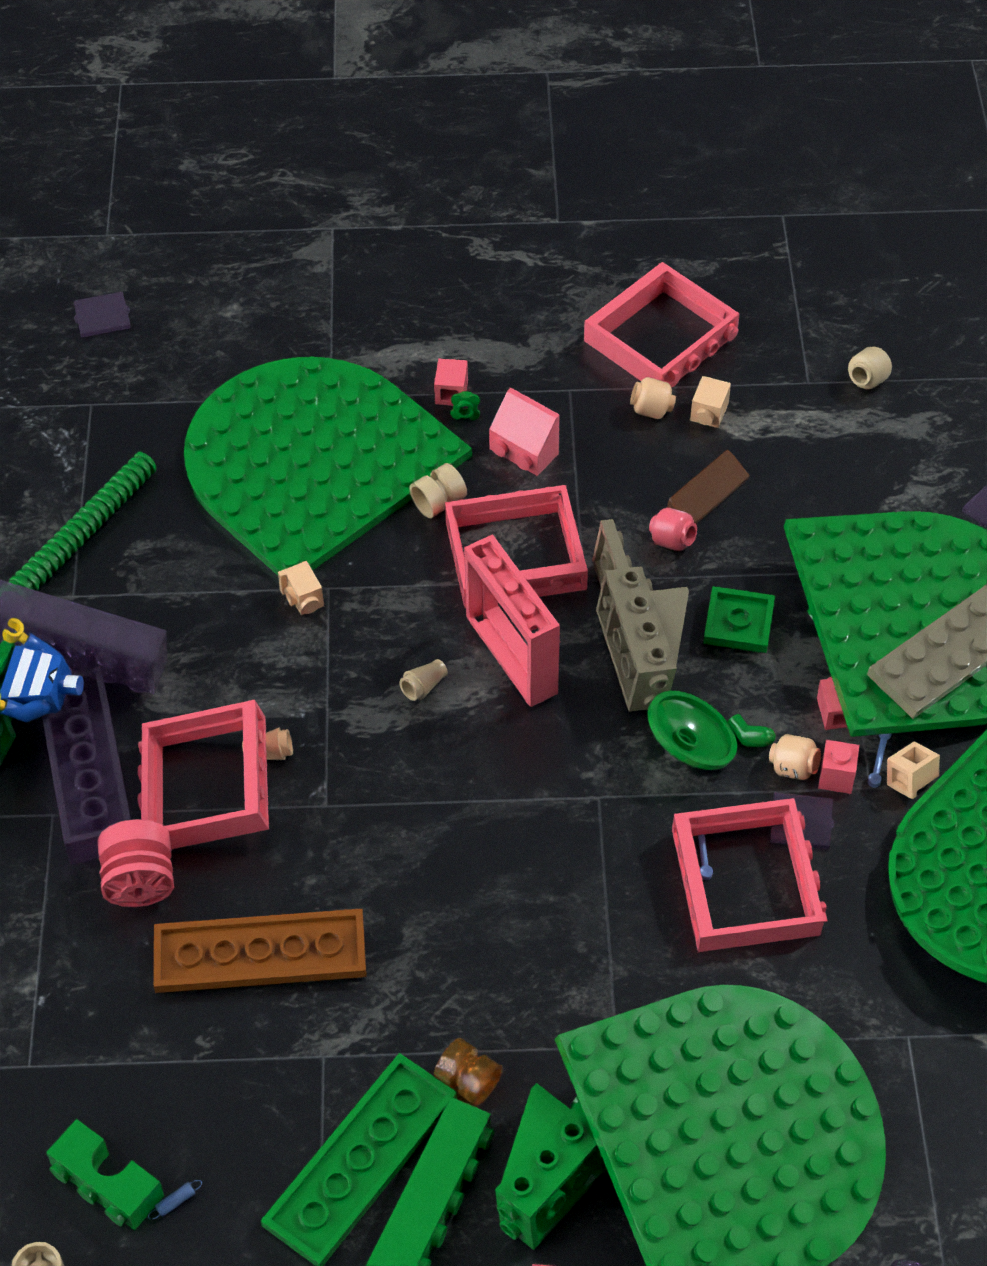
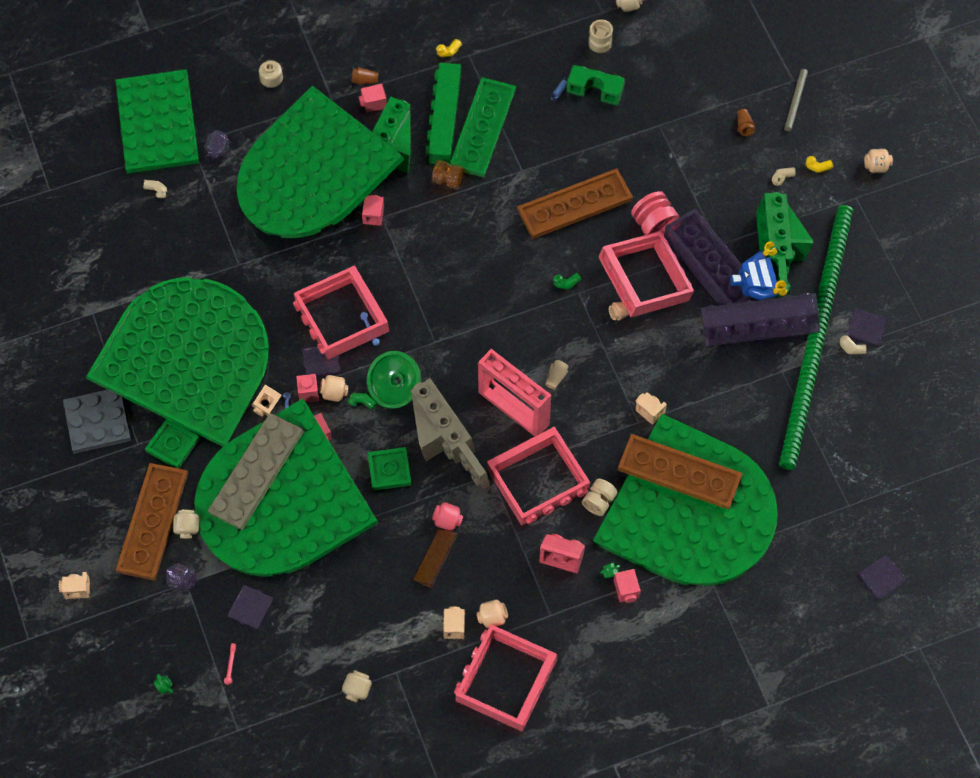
camera: 160 degrees right, 10 degrees up
(308, 481) = (680, 471): none -> dark orange plate
(339, 820) = (563, 283): none -> green arm

